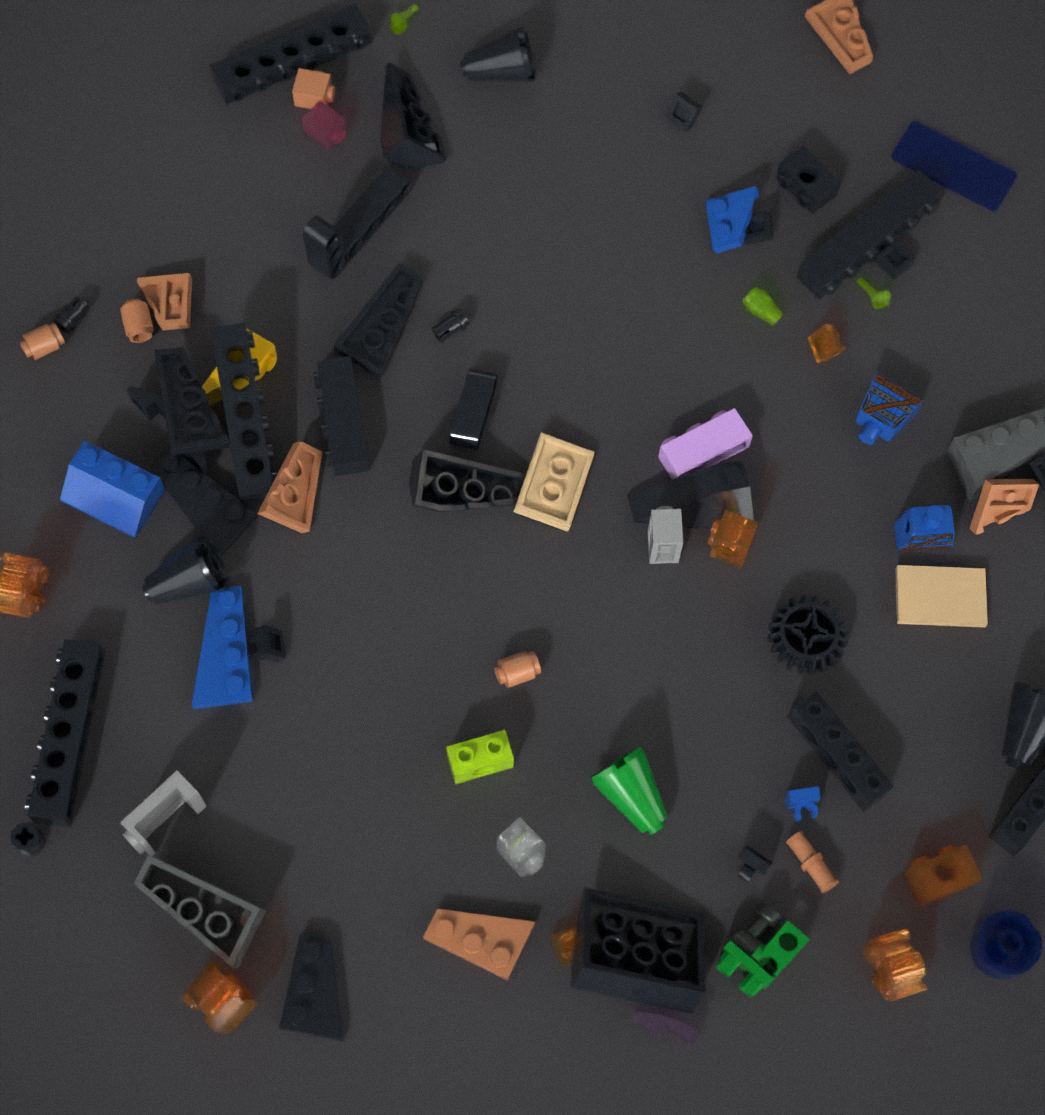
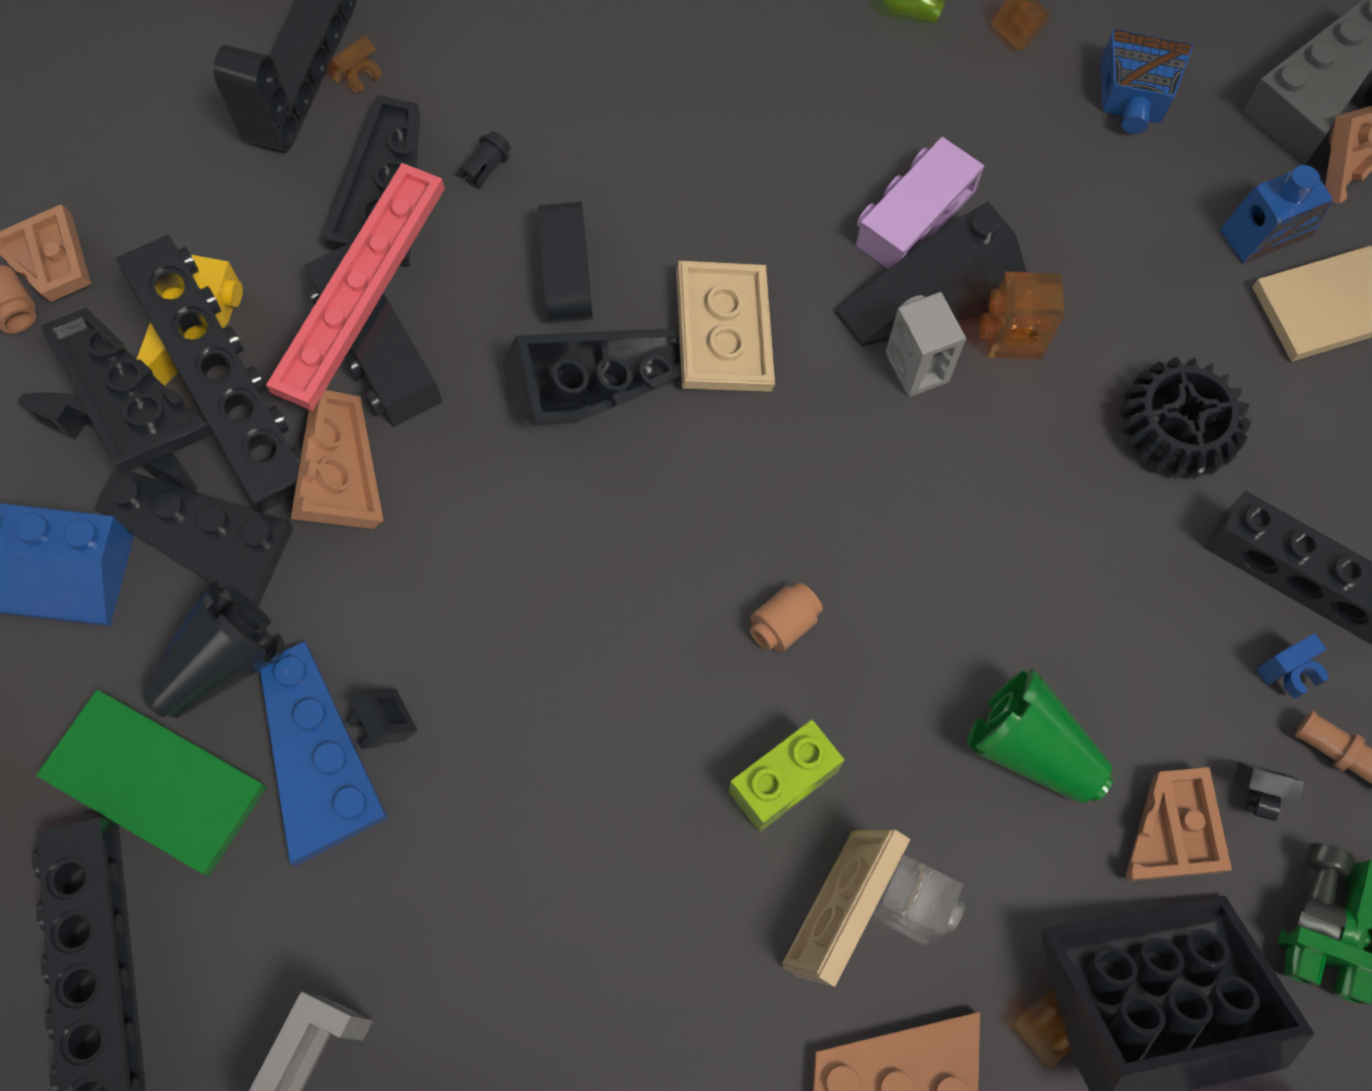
camera: 20 degrees left, 0 degrees up
(131, 634) = (152, 782): none -> green tile
(343, 386) = (355, 287): none -> coral plate
(393, 234) = (353, 60): none -> clear orange tile
(481, 835) = (845, 905): none -> tan tile
(692, 867) = (1179, 829): none -> nougat wing

